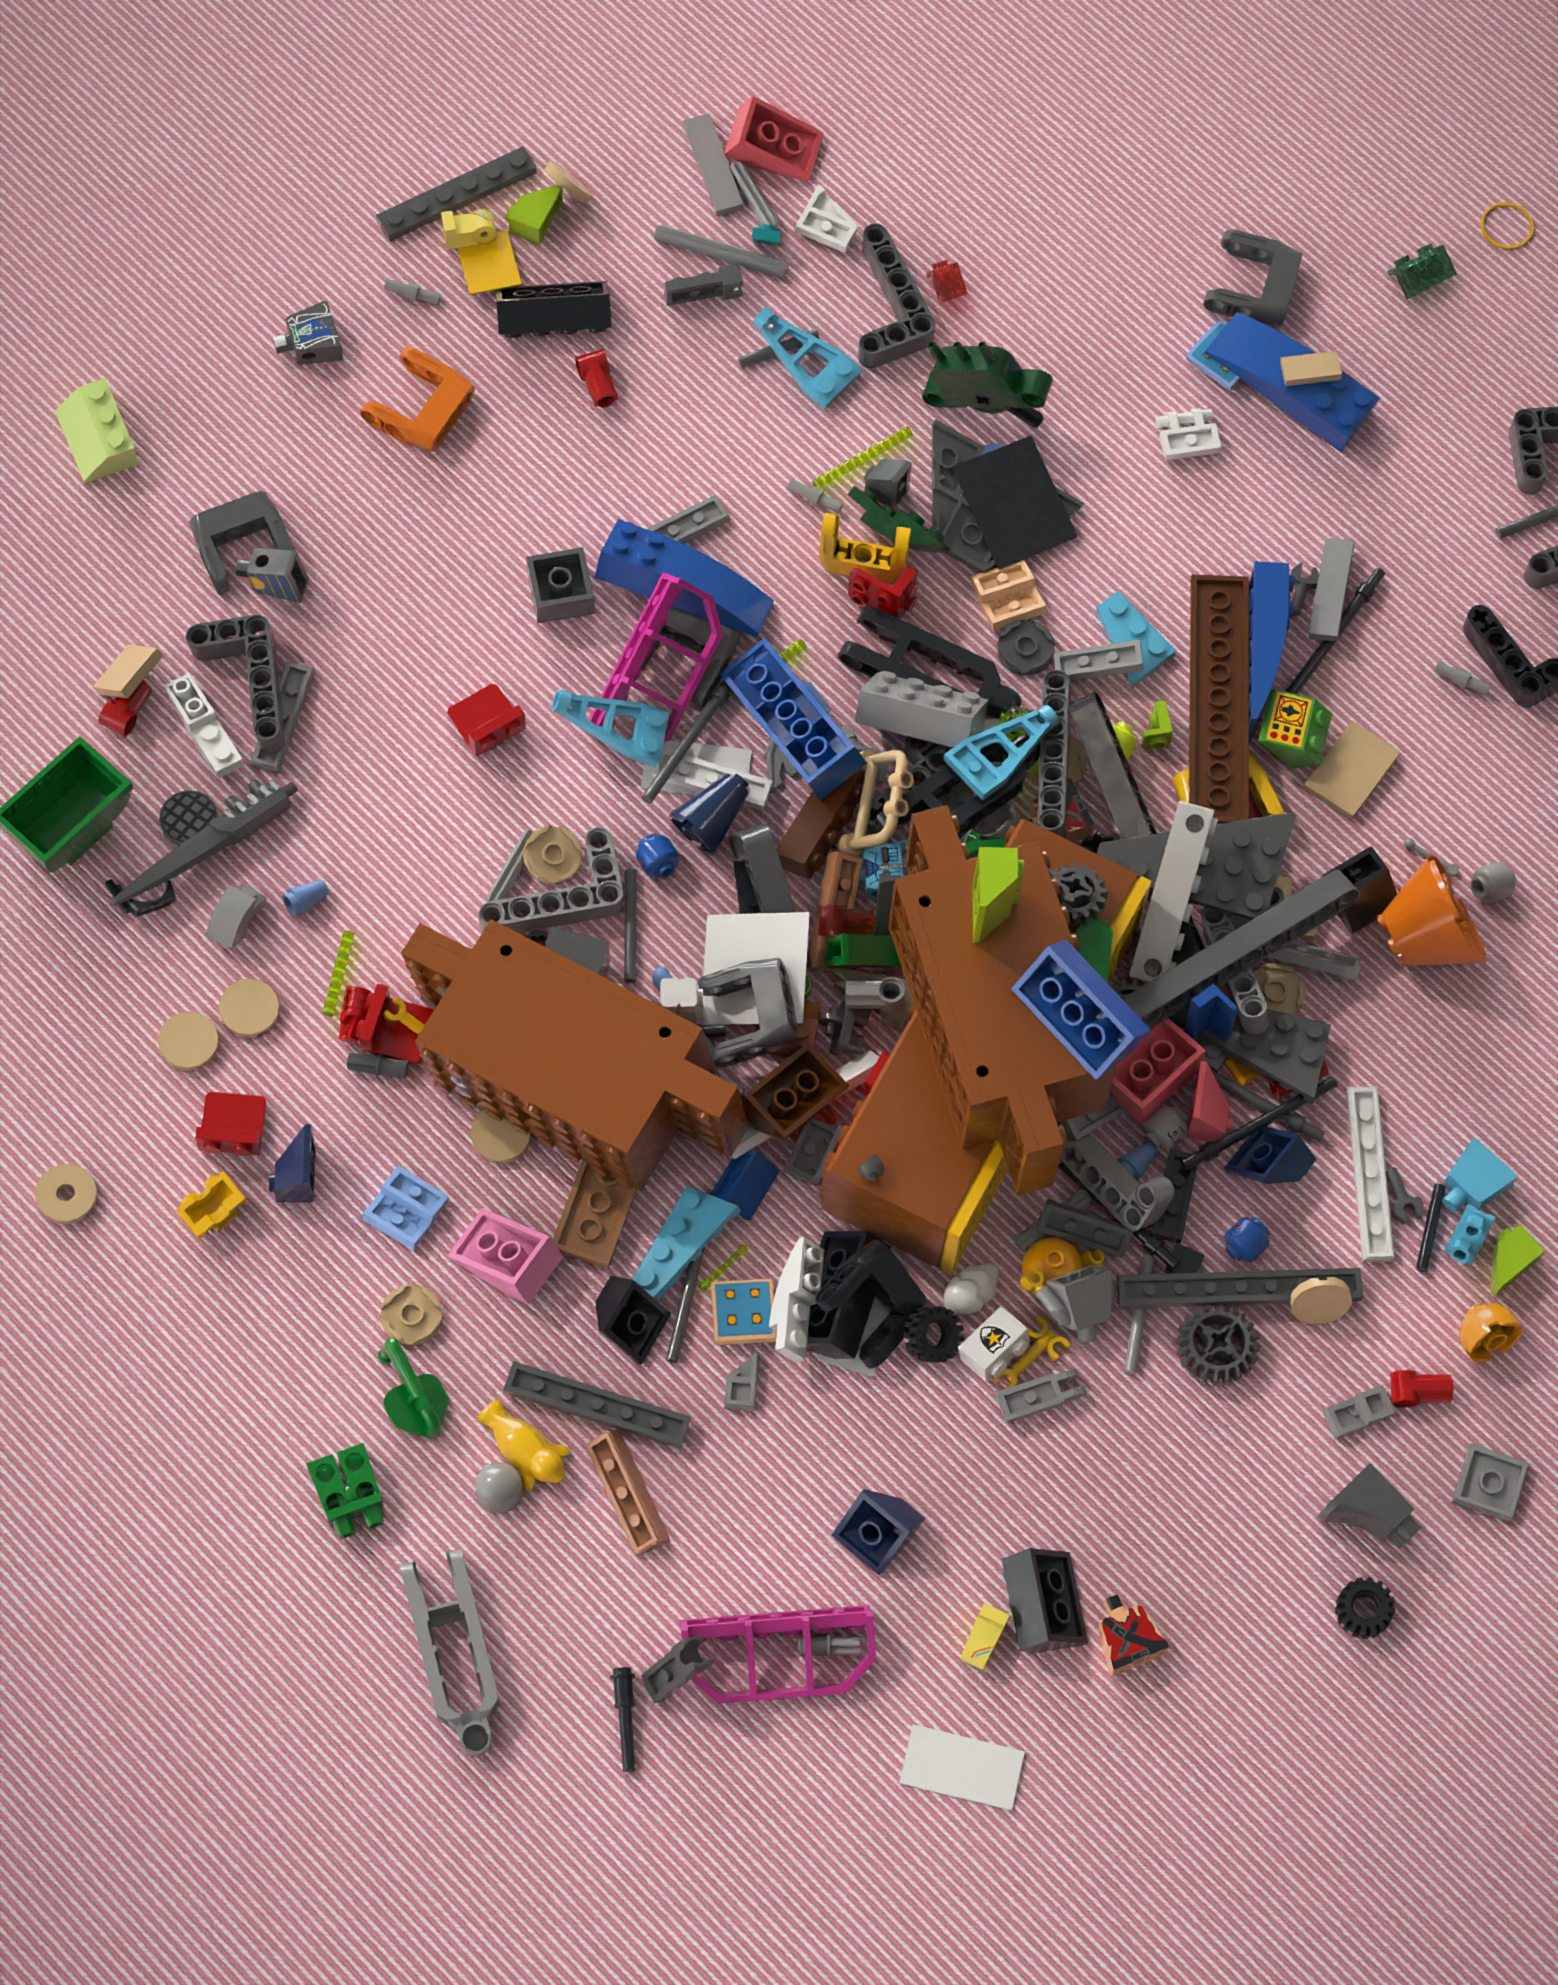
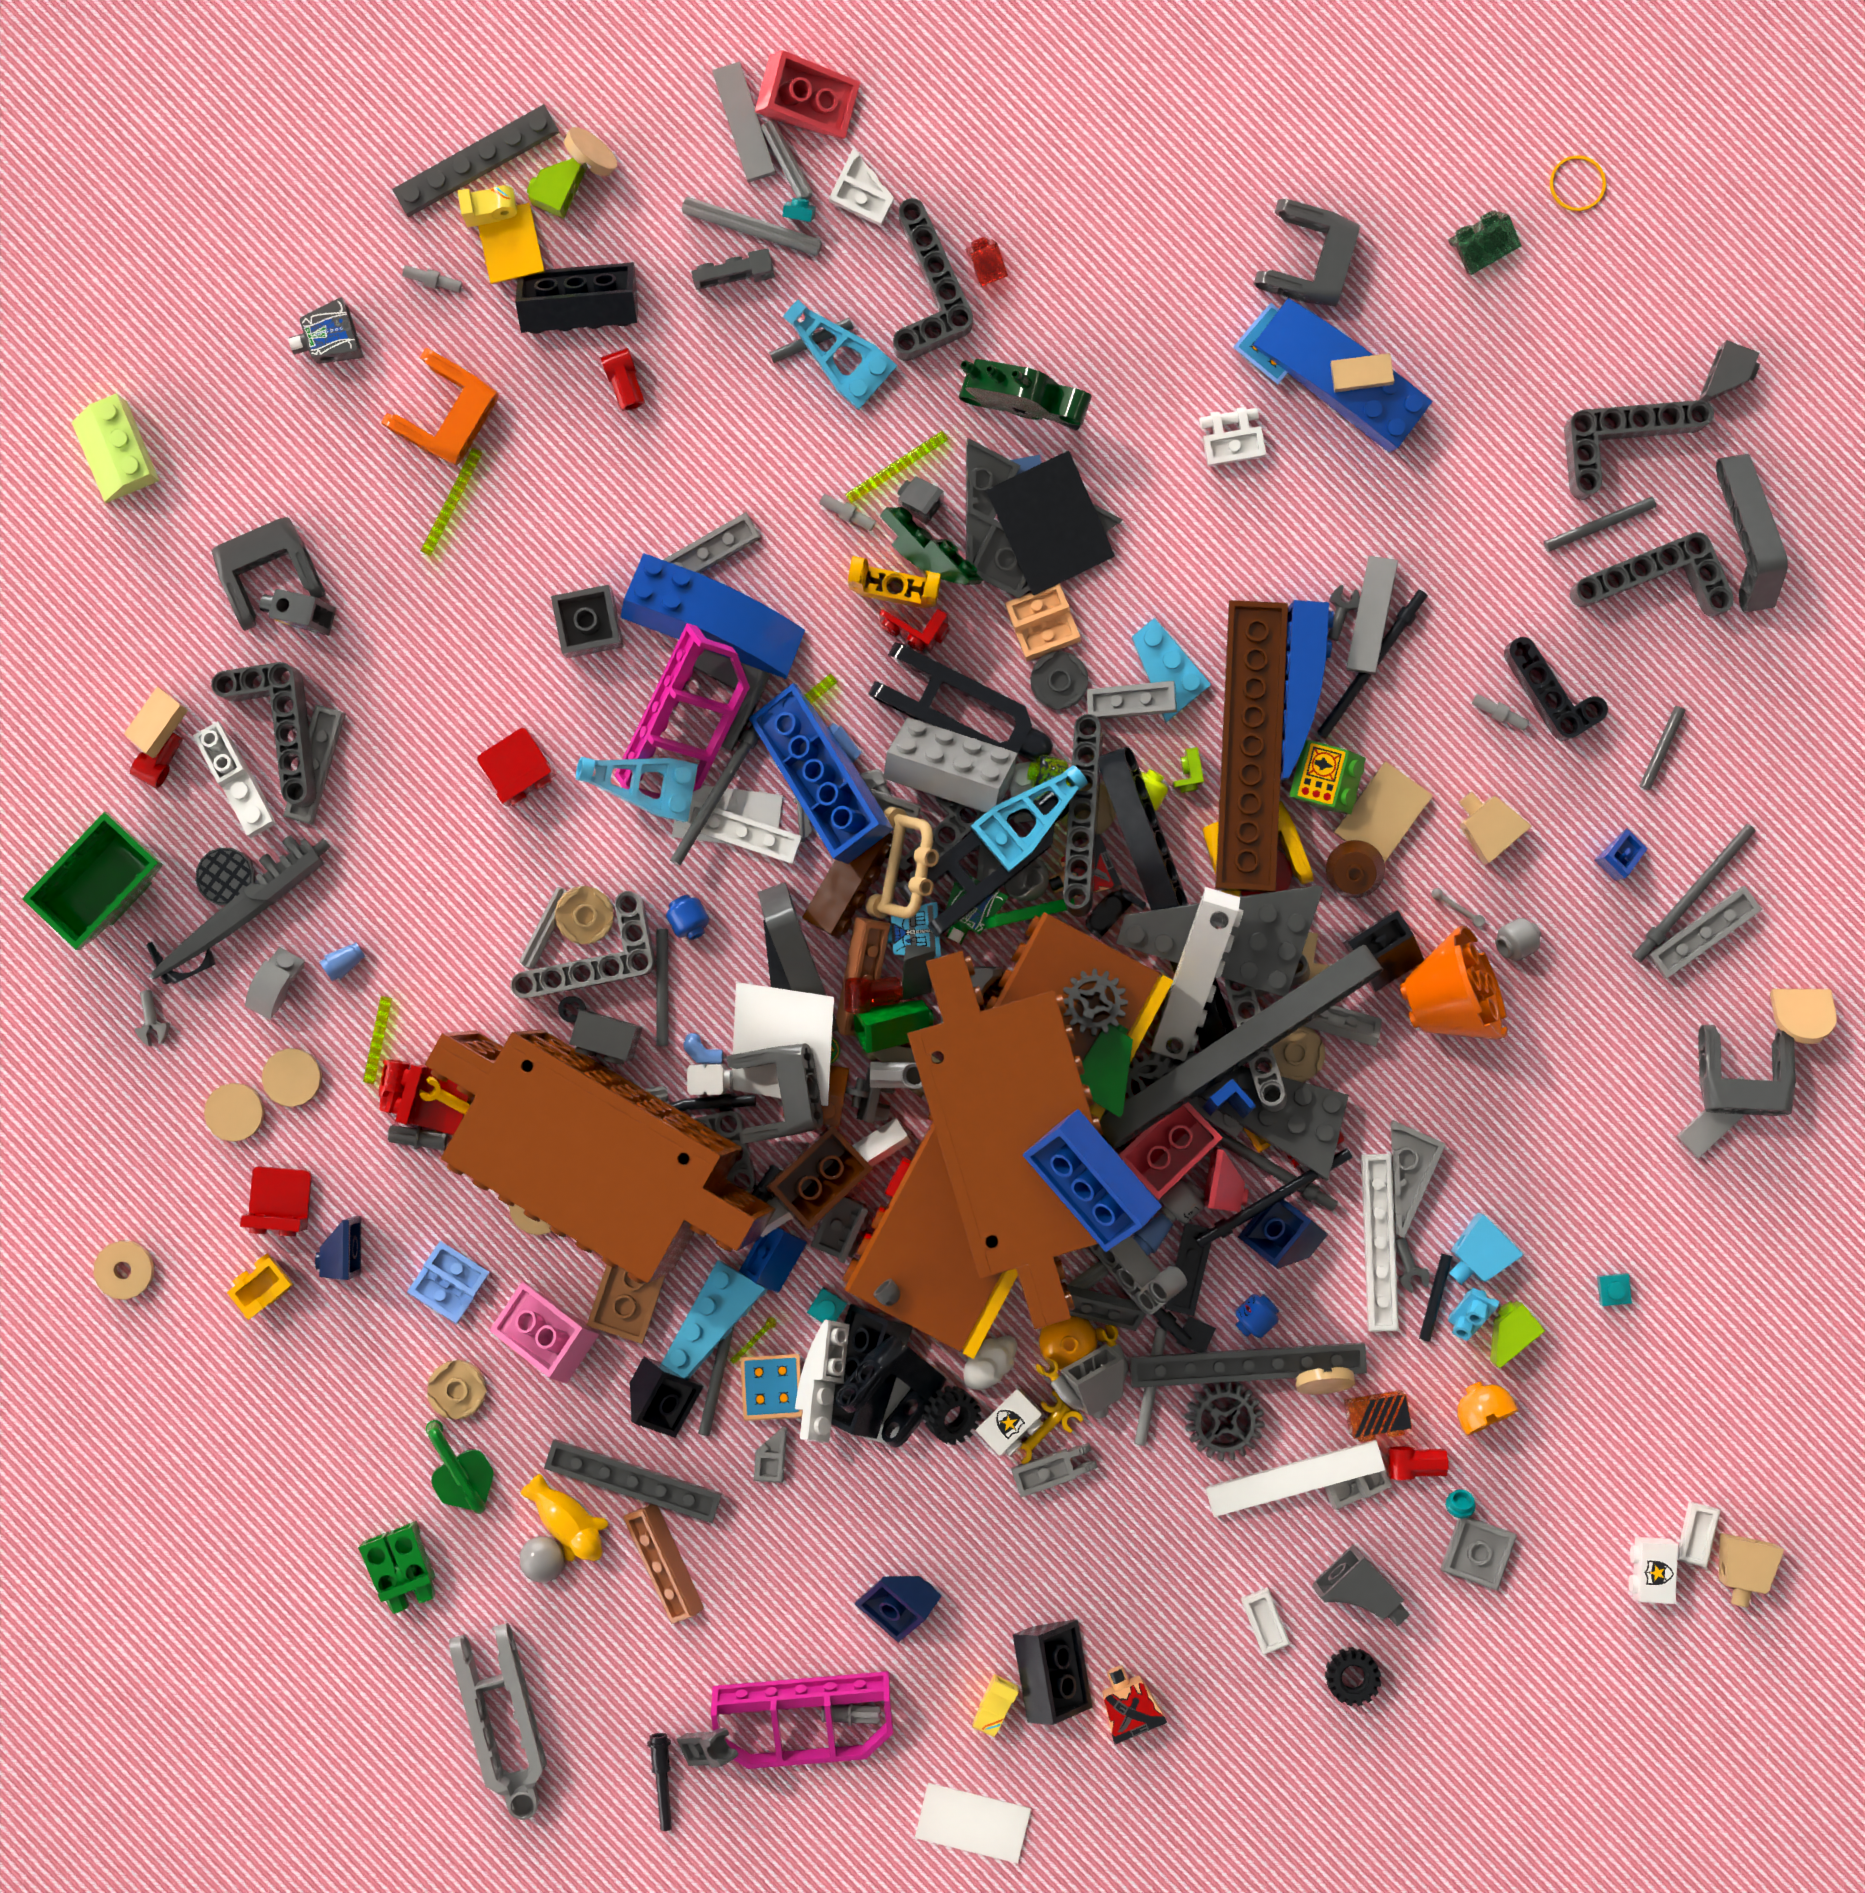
camera: 10 degrees right, 20 degrees up
(106, 953) = (151, 1021): none -> light grey bar
(425, 484) = (451, 502): none -> clear neon green bar
(711, 812) = (739, 875): dark blue cone -> none
(798, 1228) = (827, 1306): none -> teal plate
(995, 888) = (1005, 1066): lime slope -> none
(1269, 1553) = (1265, 1621): none -> white tile
(1293, 1401) = (1295, 1478): none -> white tile
(1327, 816) = (1355, 869): none -> reddish brown cone
(1377, 1339) = (1378, 1415): none -> brick
(1400, 1095) = (1413, 1165): none -> light grey wing
(1460, 779) = (1490, 826): none -> tan torso
(1468, 1430) = (1460, 1504): none -> teal plate

